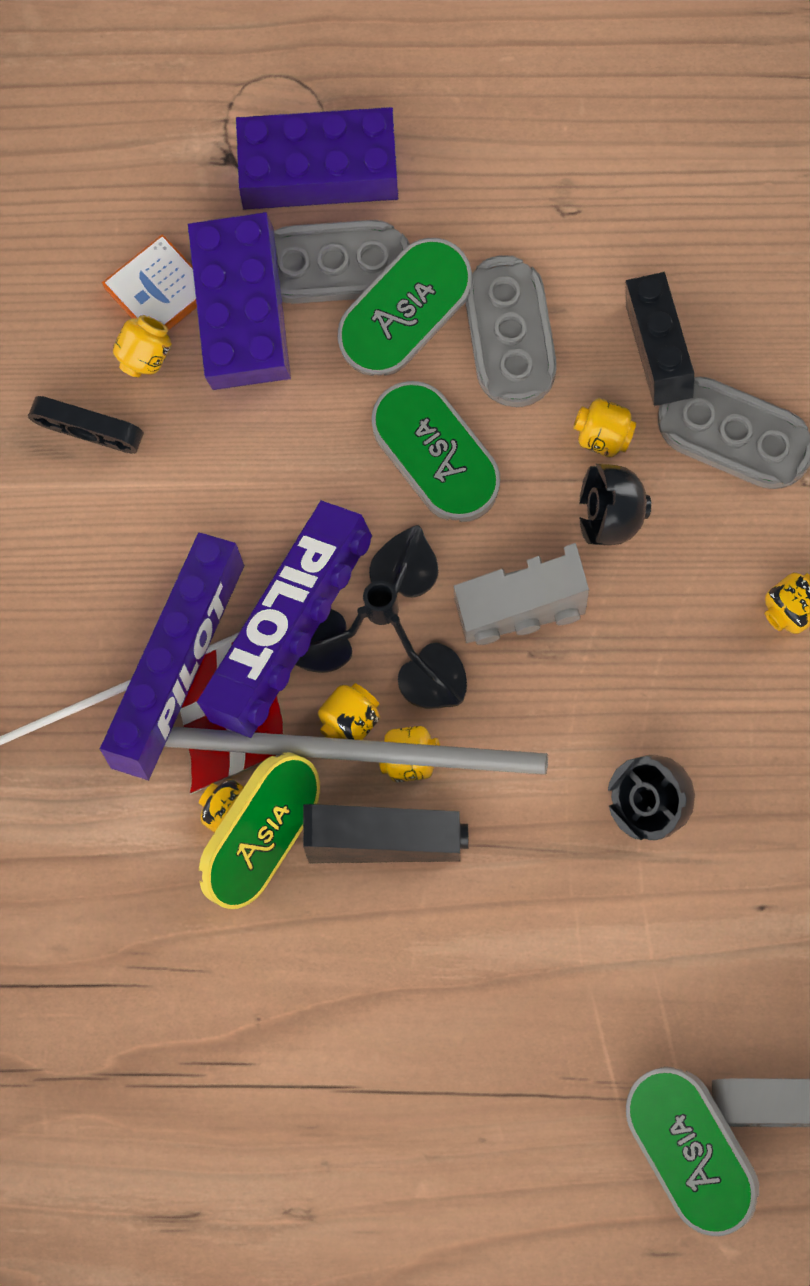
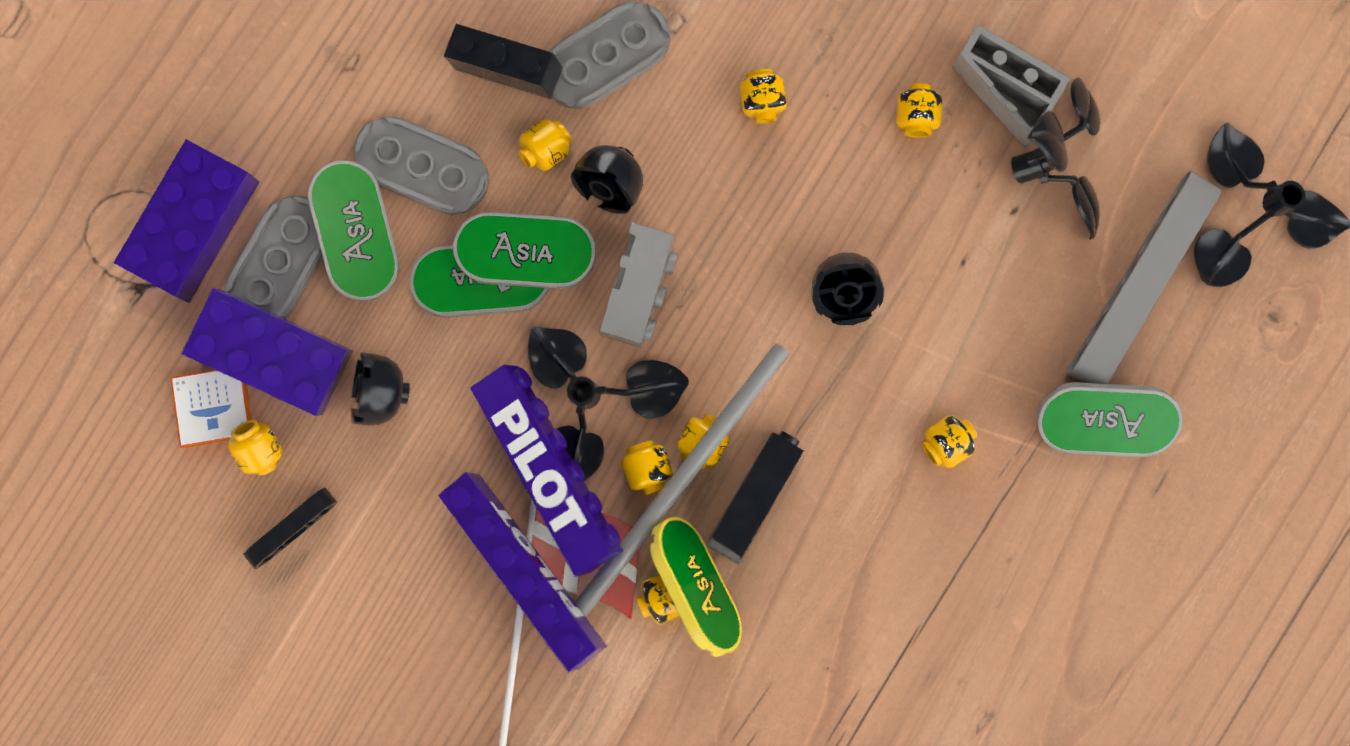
camera: 65 degrees left, 10 degrees up
(266, 420) = (377, 389): none -> black cylinder
(488, 471) = (524, 250): none -> green tile
(564, 1000) = (949, 441): none -> yellow head

